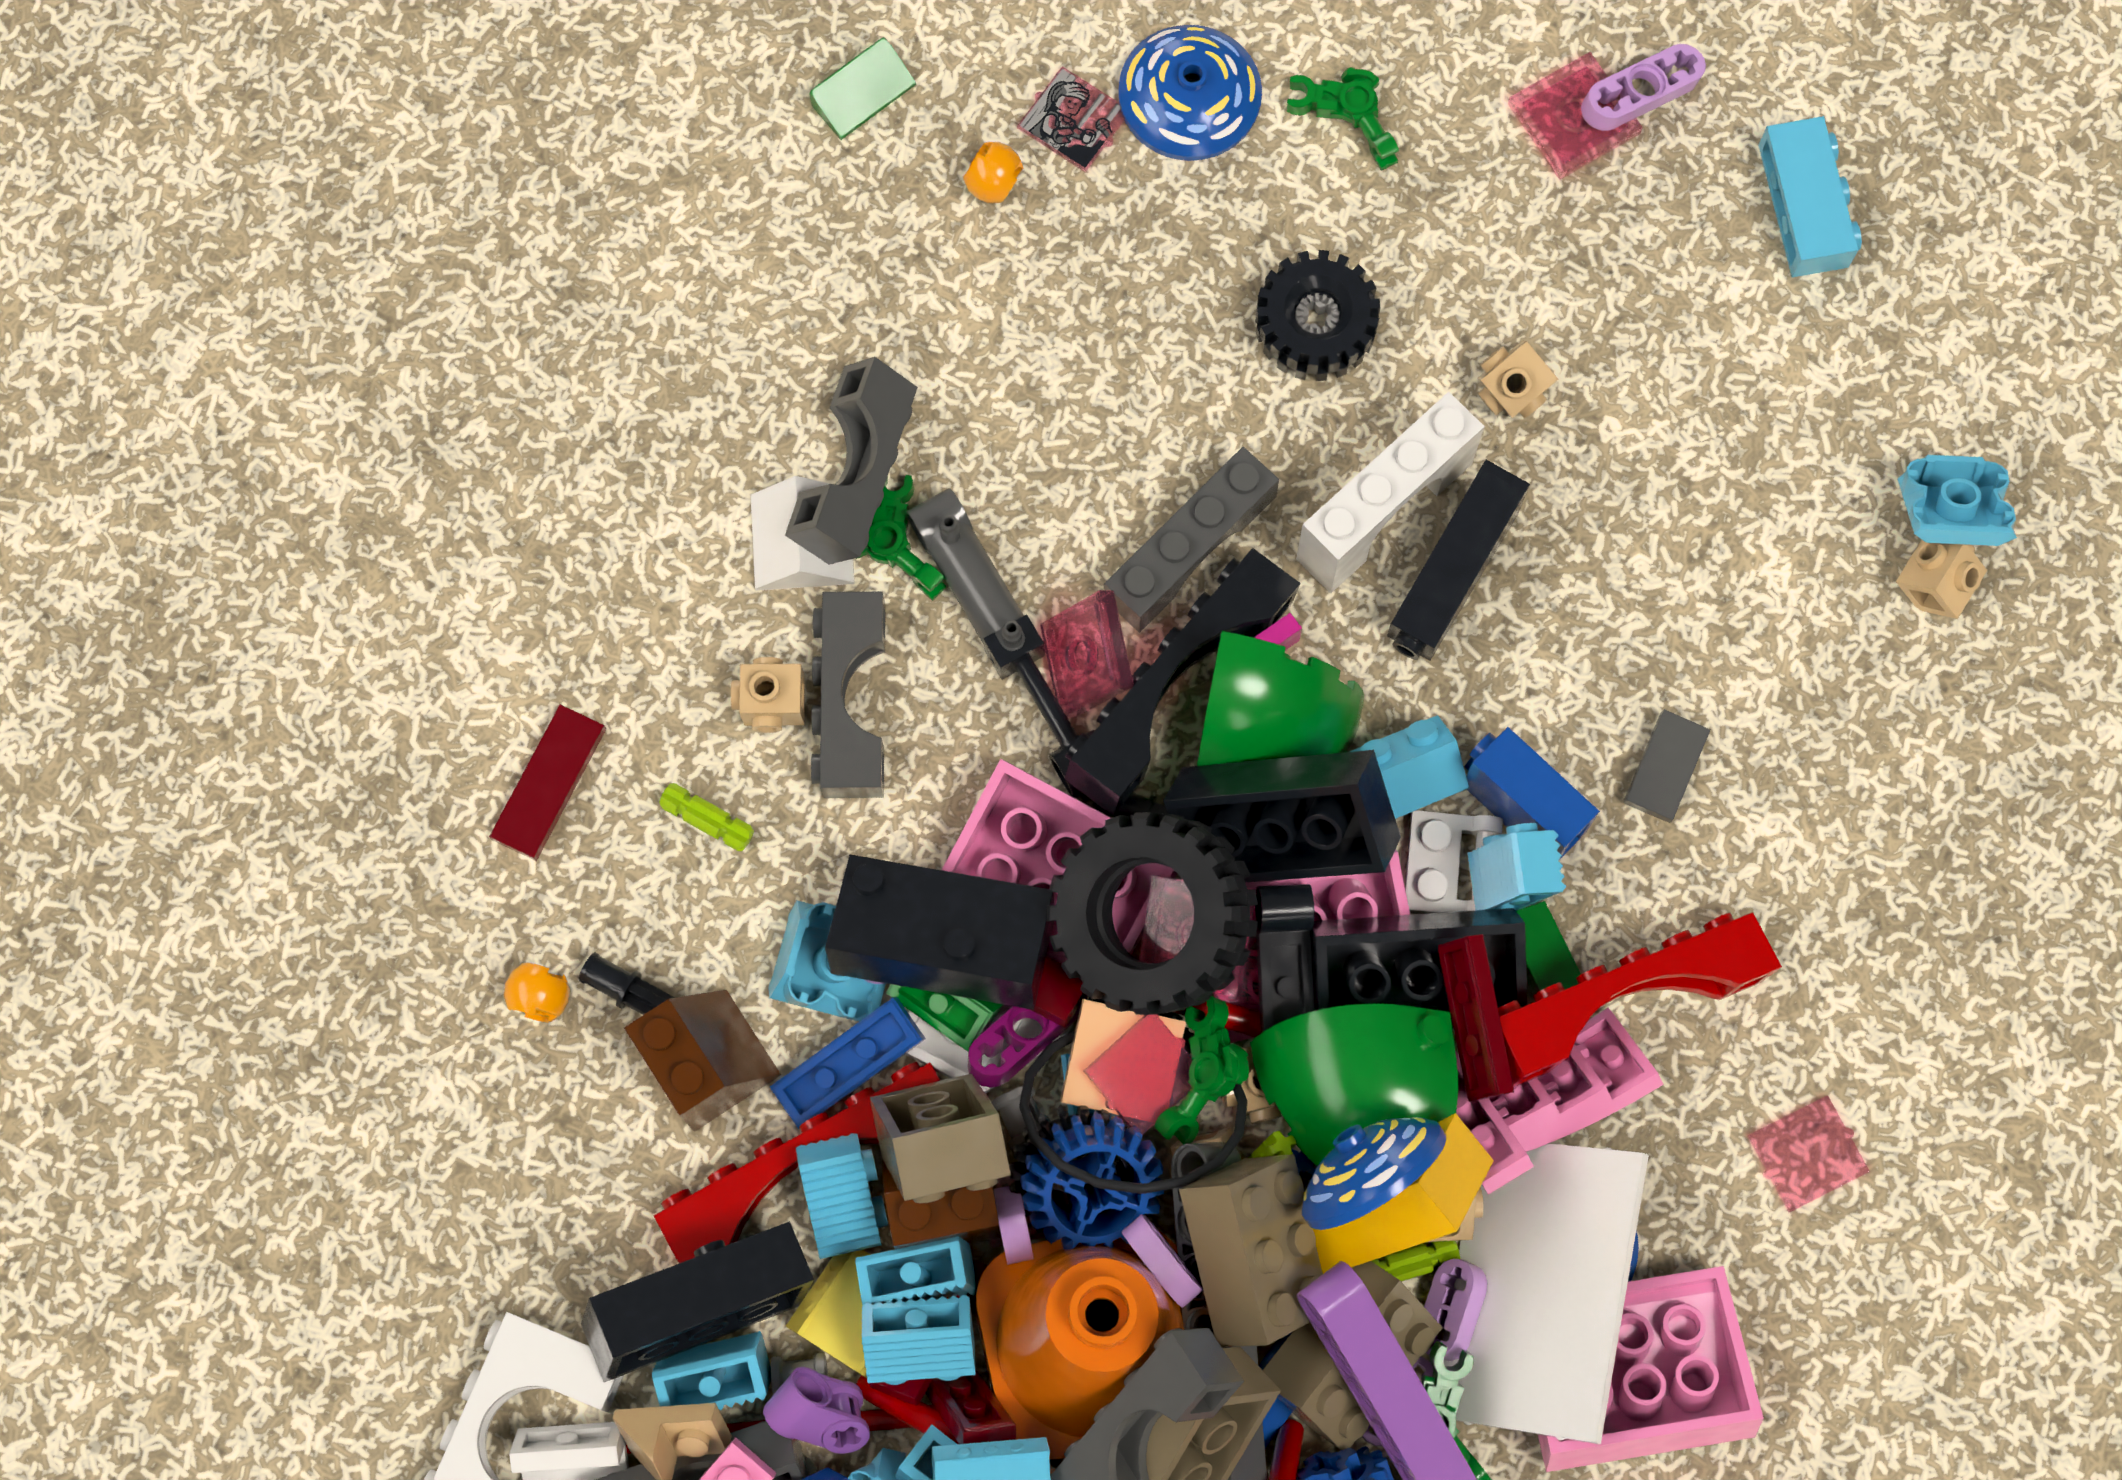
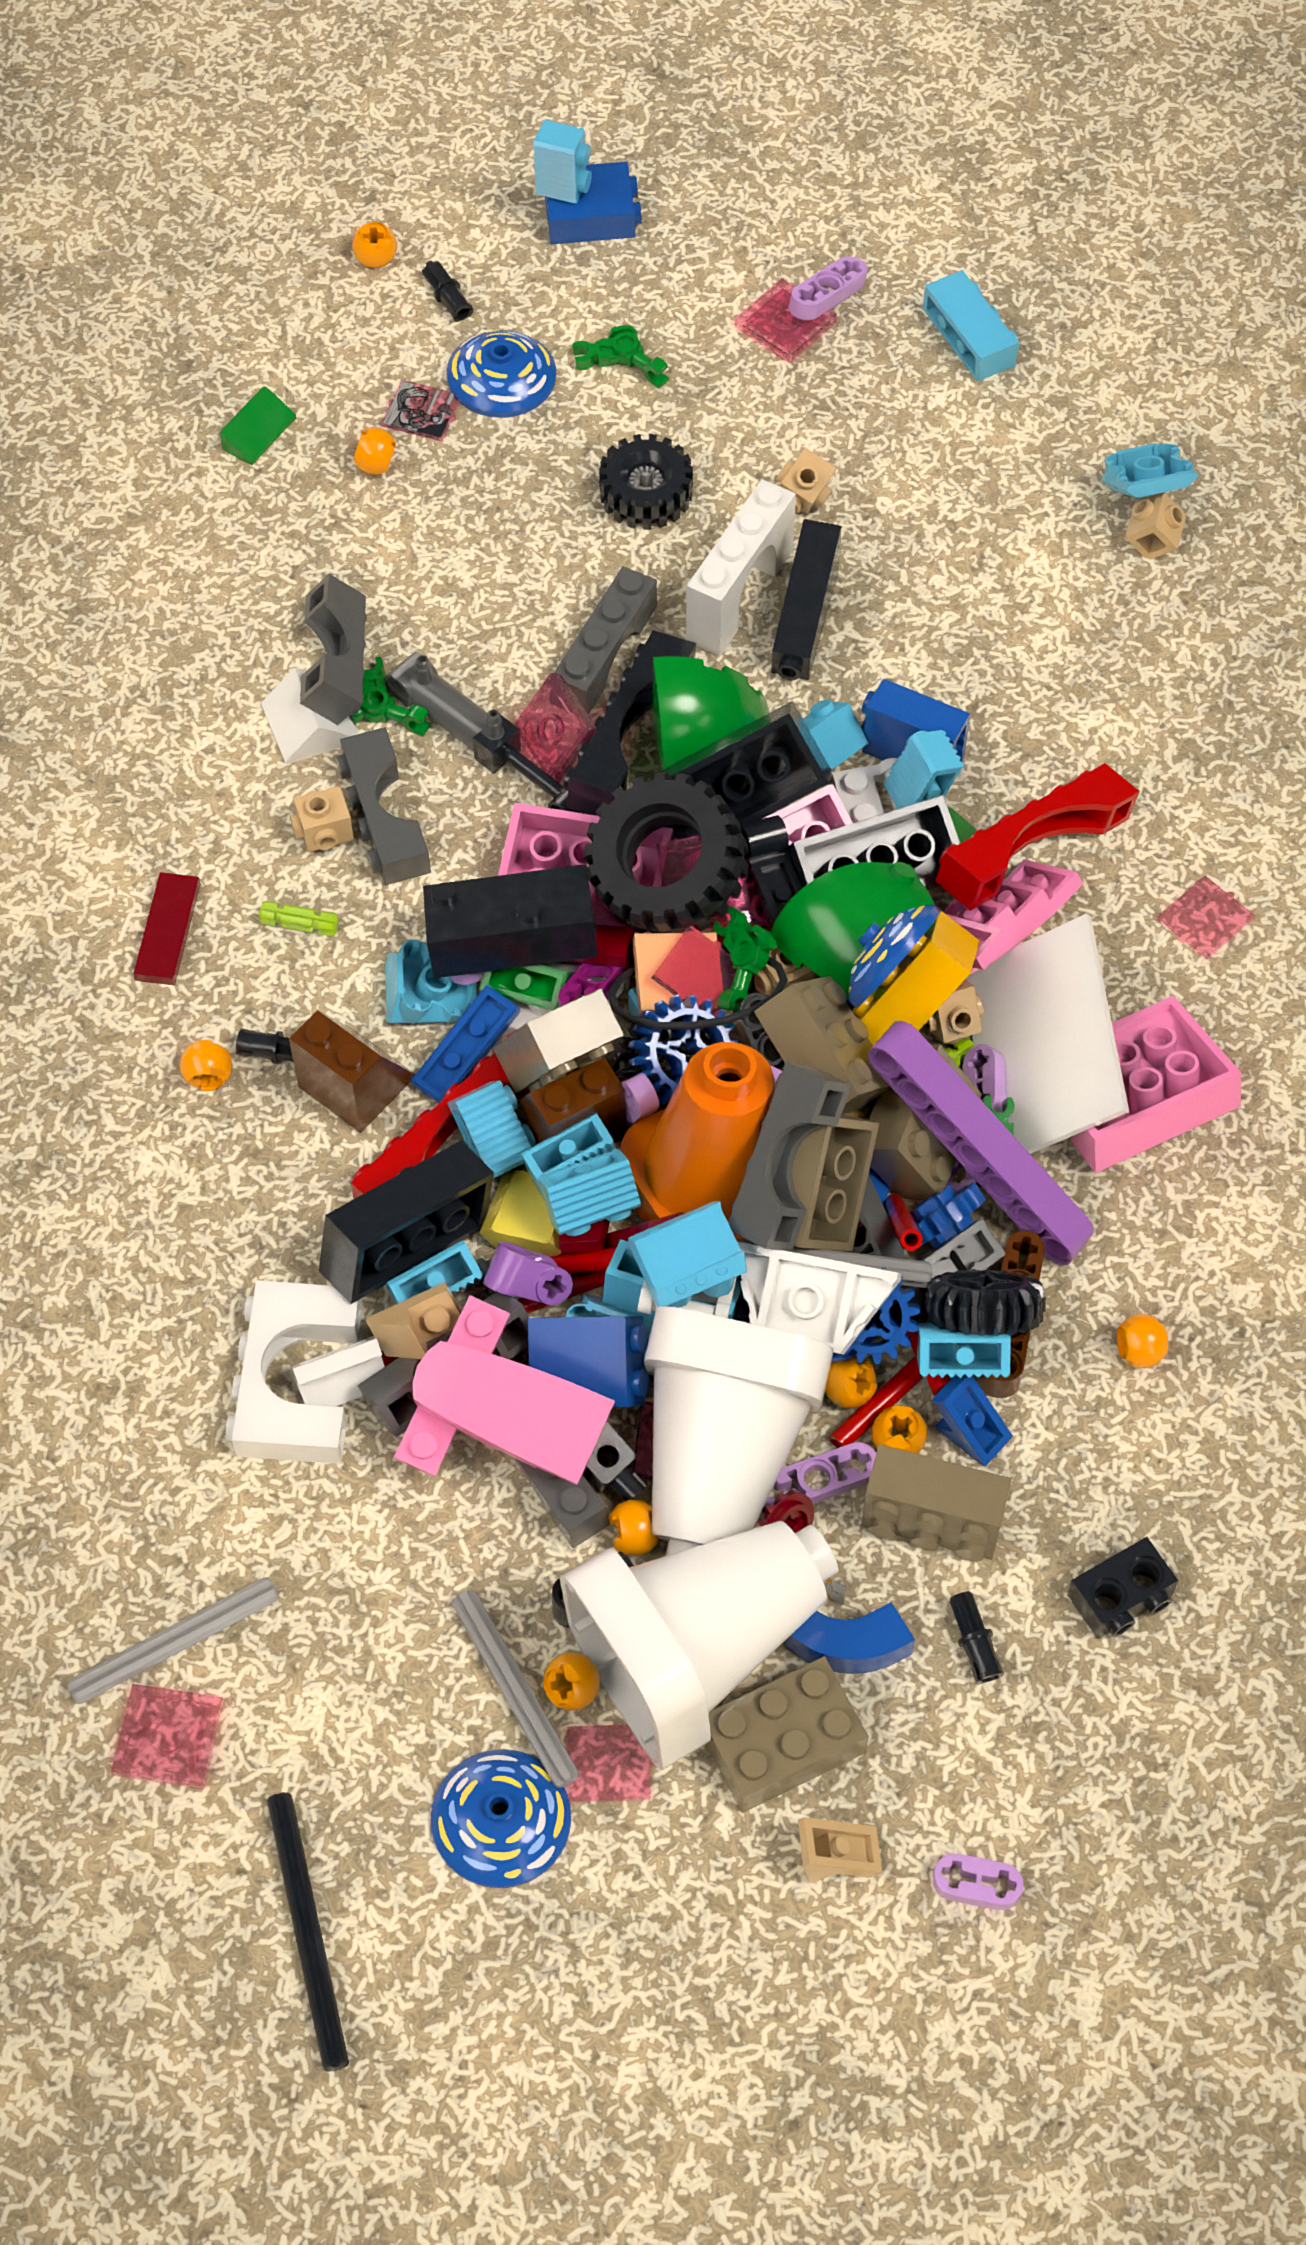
camera: 20 degrees left, 15 degrees down
(1475, 1018) = (931, 858): dark red tile -> none
(1666, 766) = (1006, 698): dark grey tile -> none

